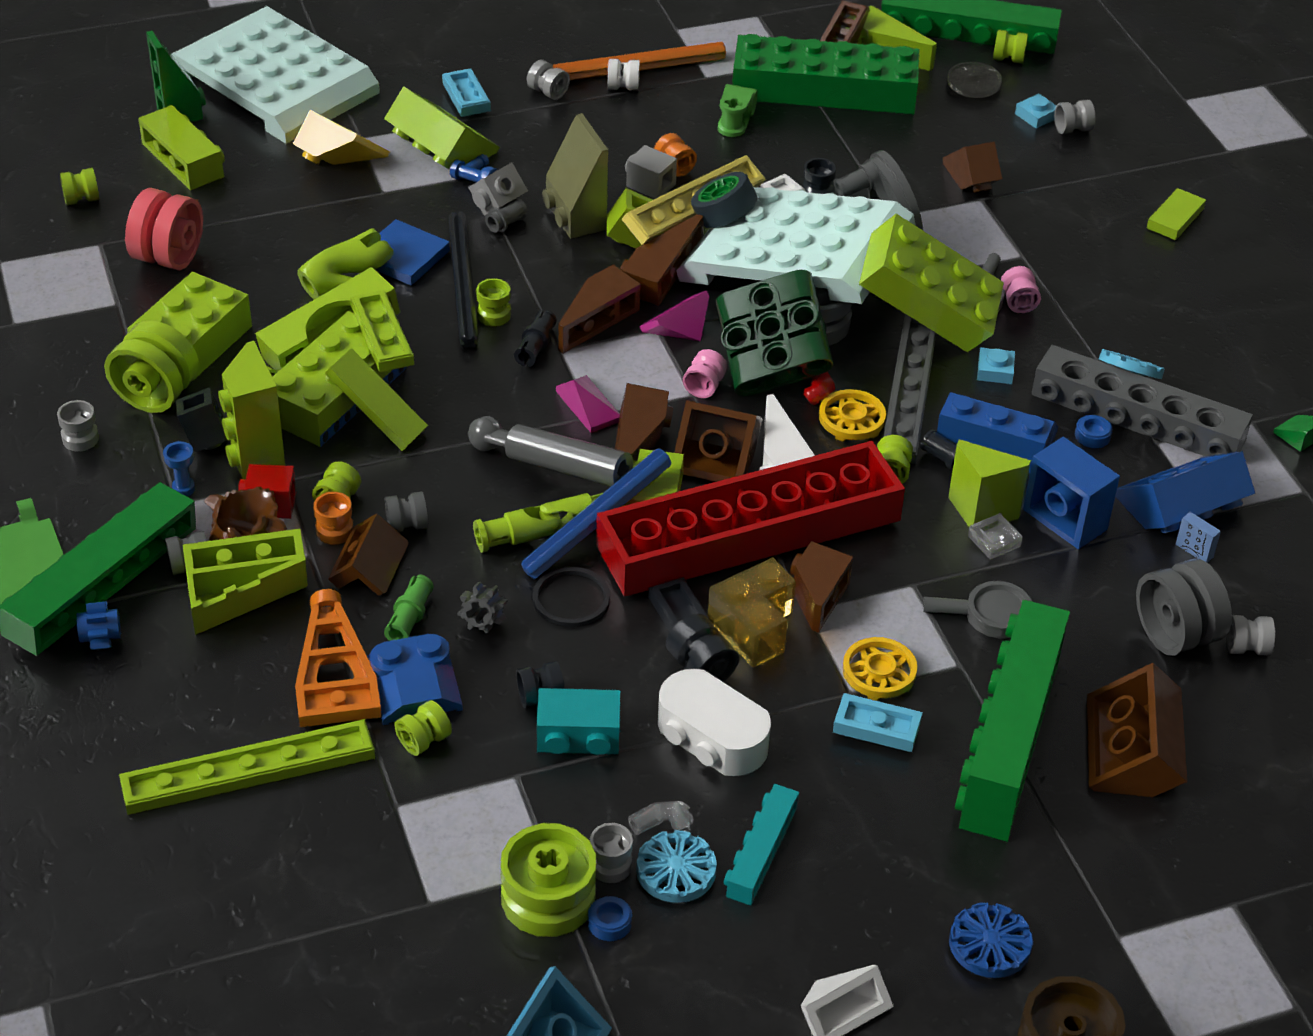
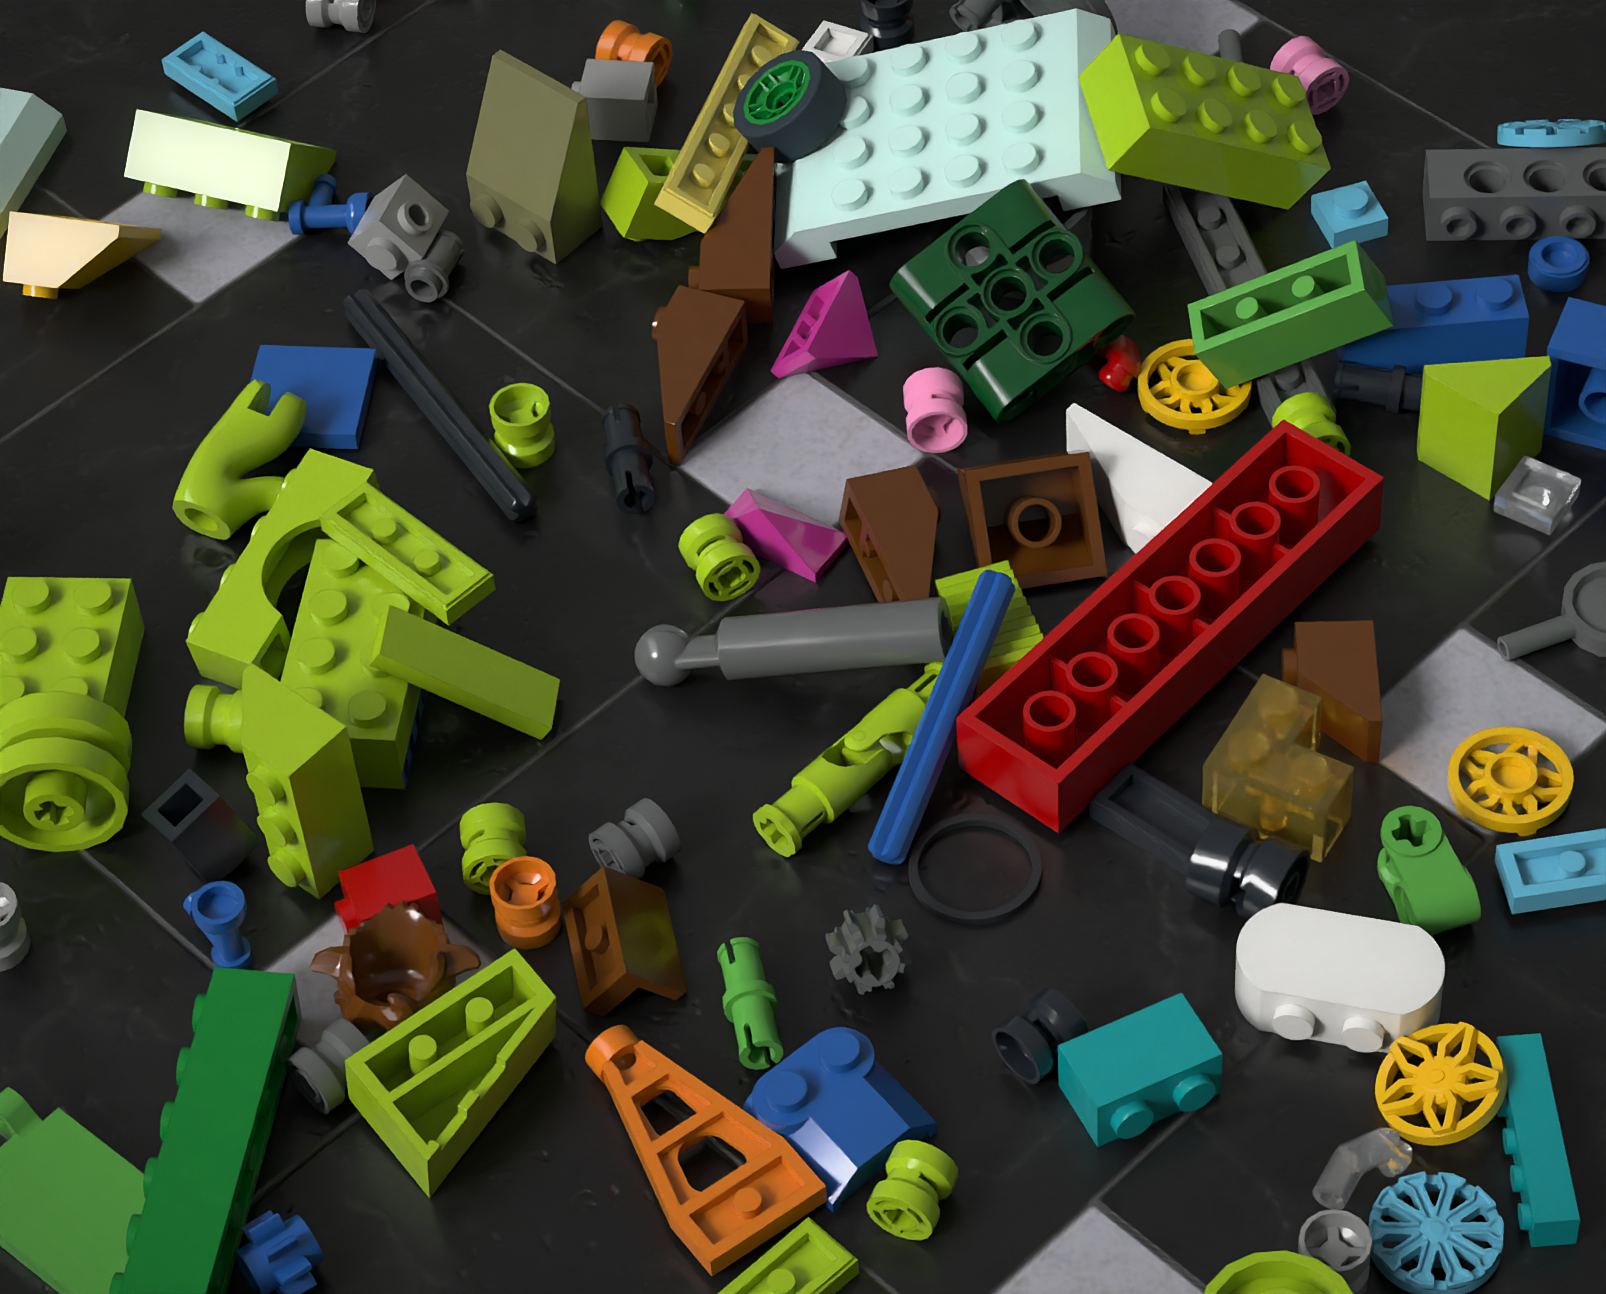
camera: 20 degrees left, 5 degrees up
(545, 399) = (721, 560): none -> lime wheel
(730, 794) = (1441, 1083): none -> yellow wheel
(795, 690) = (1424, 873): none -> bright green piece
(910, 391) = (1290, 314): none -> bright green brick

